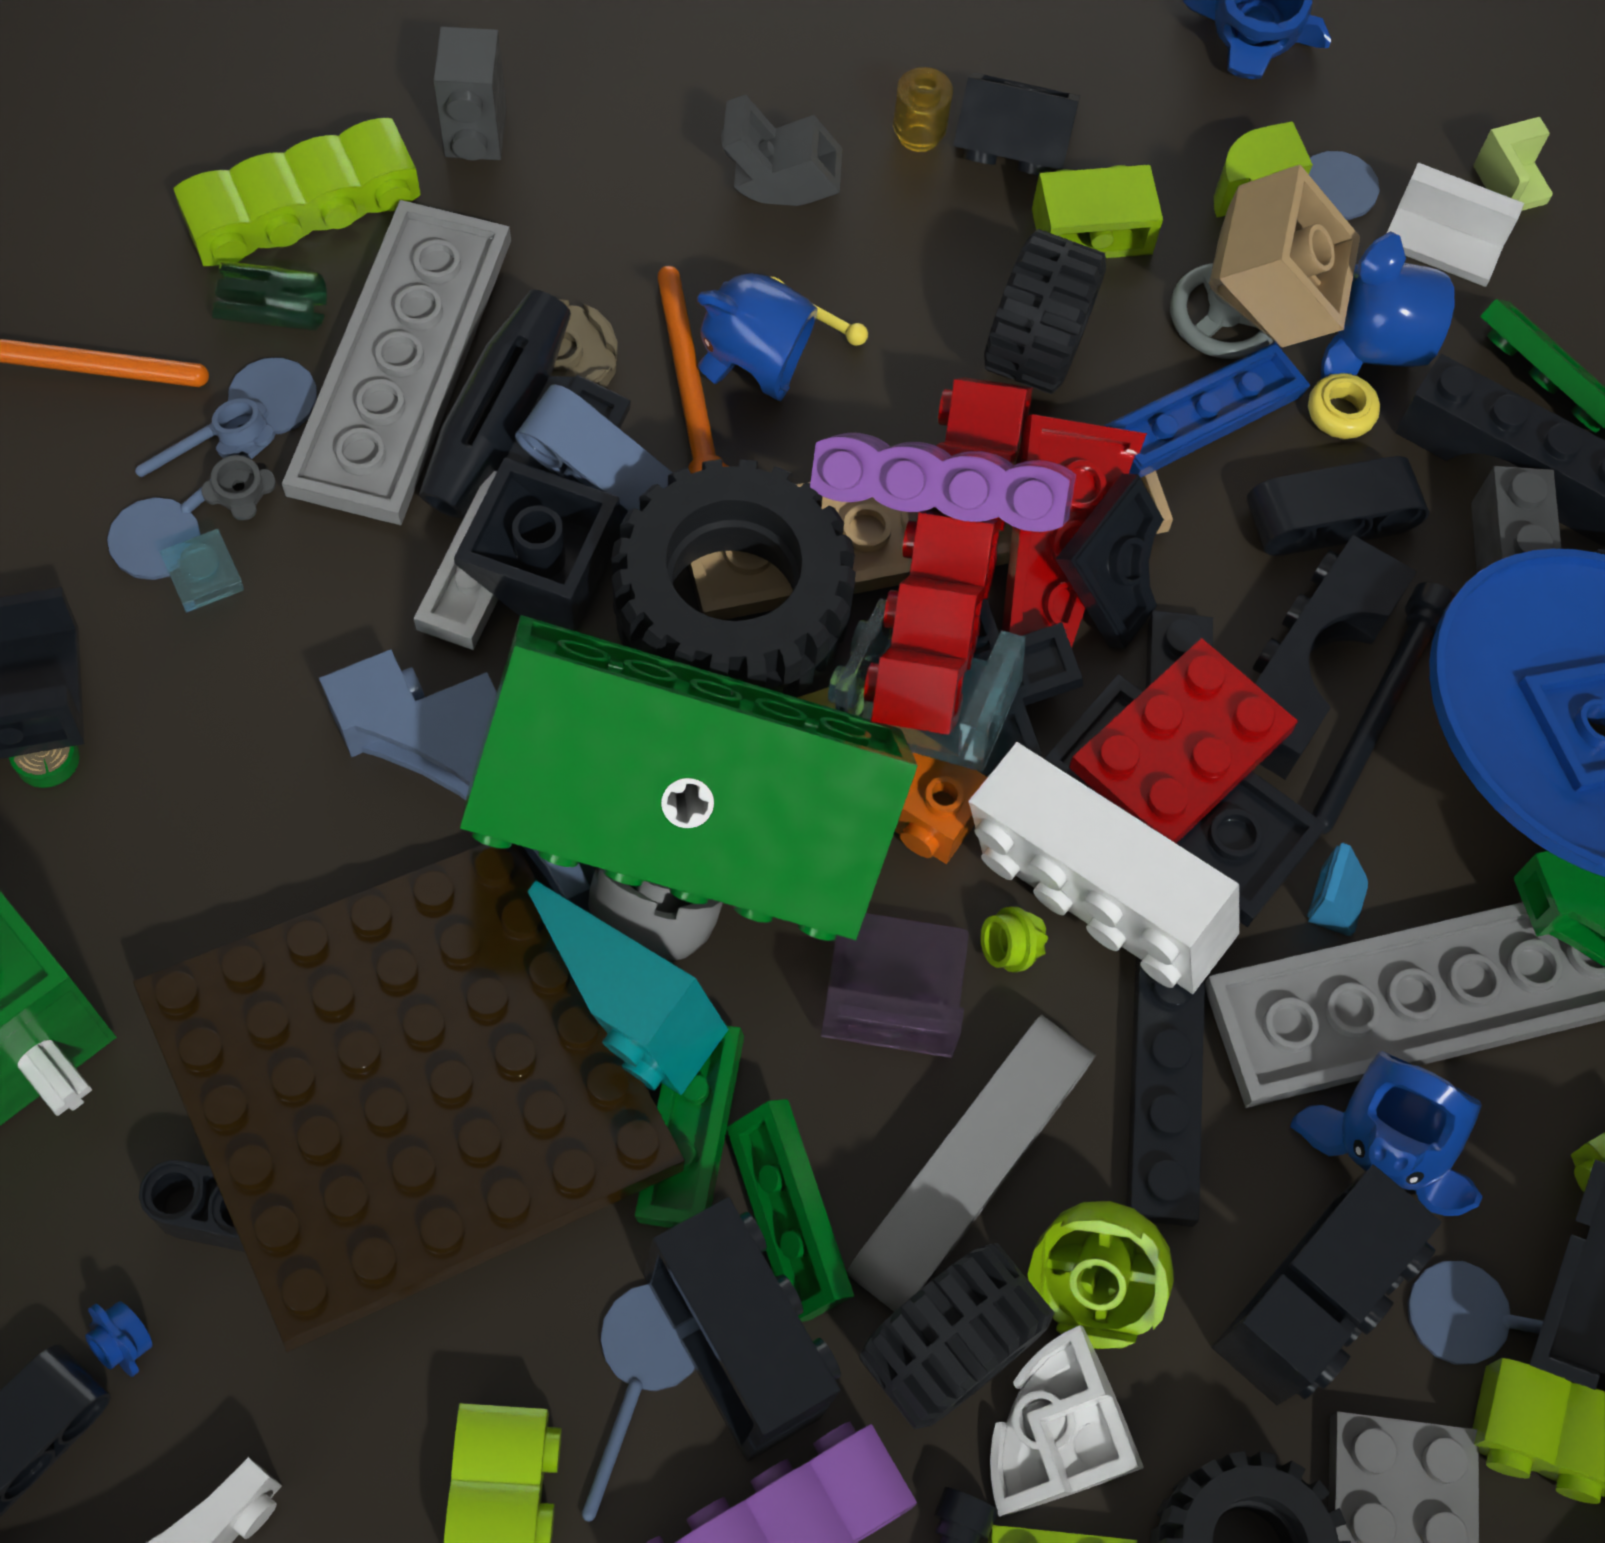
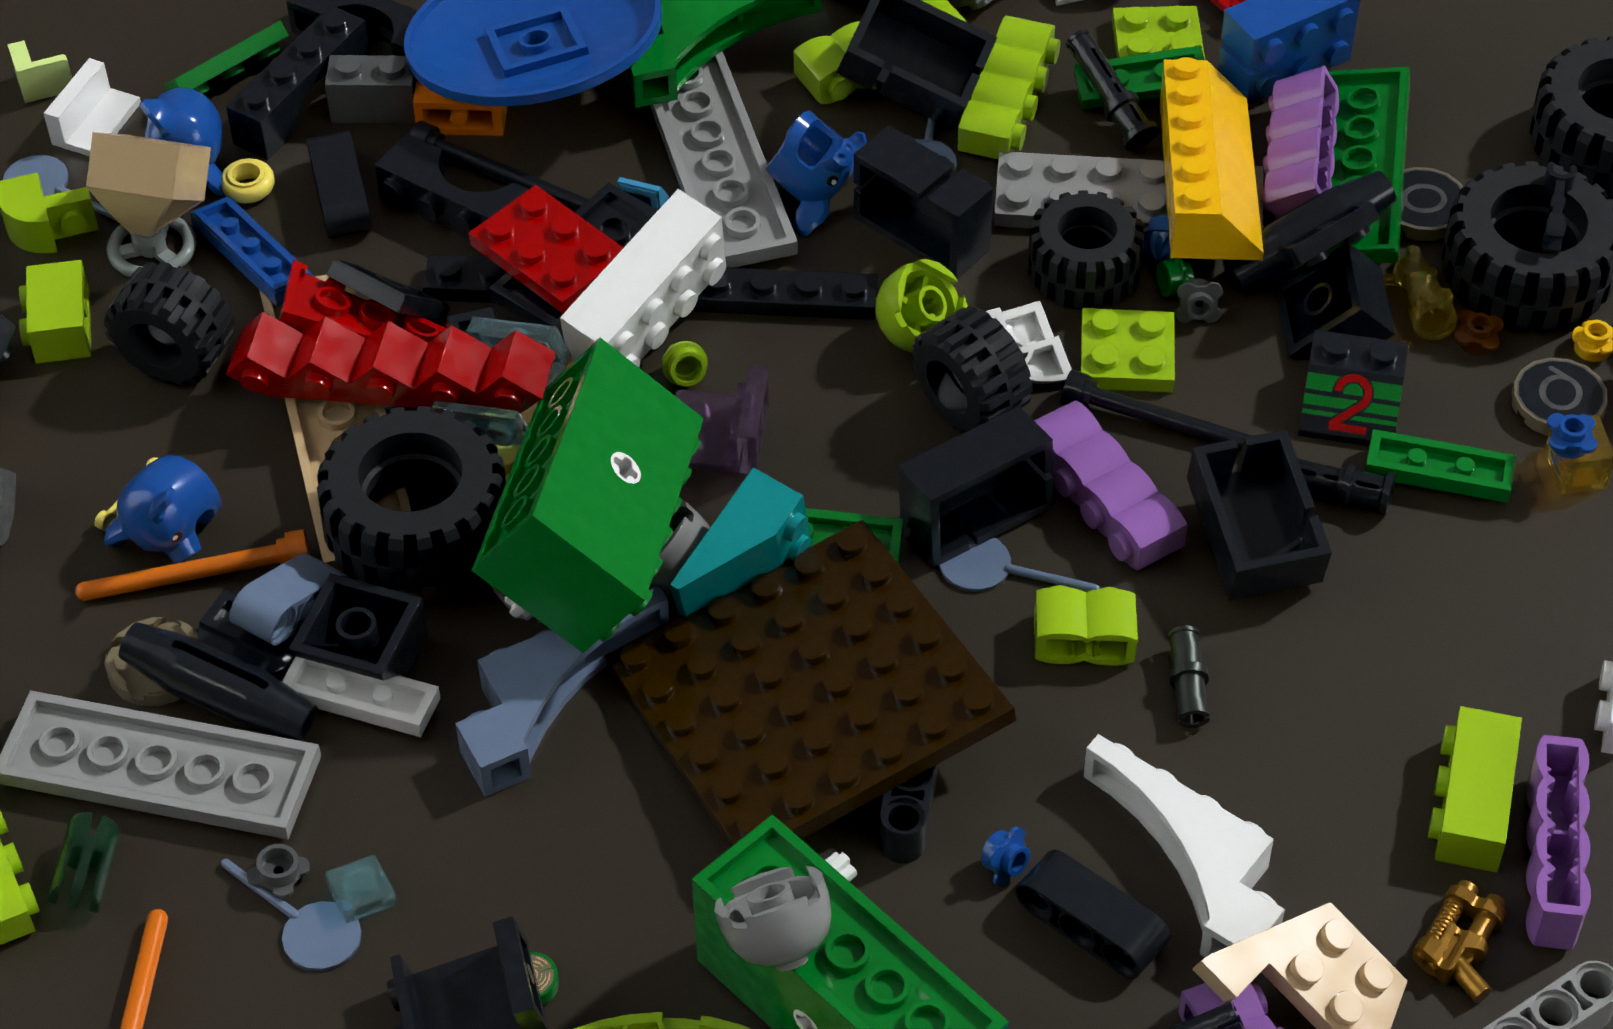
camera: 85 degrees left, 15 degrees down
(241, 427) = (214, 859): sand blue plate -> none
(277, 383) = (185, 867): sand blue piece -> none
(789, 1206) = (866, 482): green plate -> none
(963, 486) = (346, 353): medium lavender brick -> none
(970, 1164) = (848, 385): light grey beam -> none

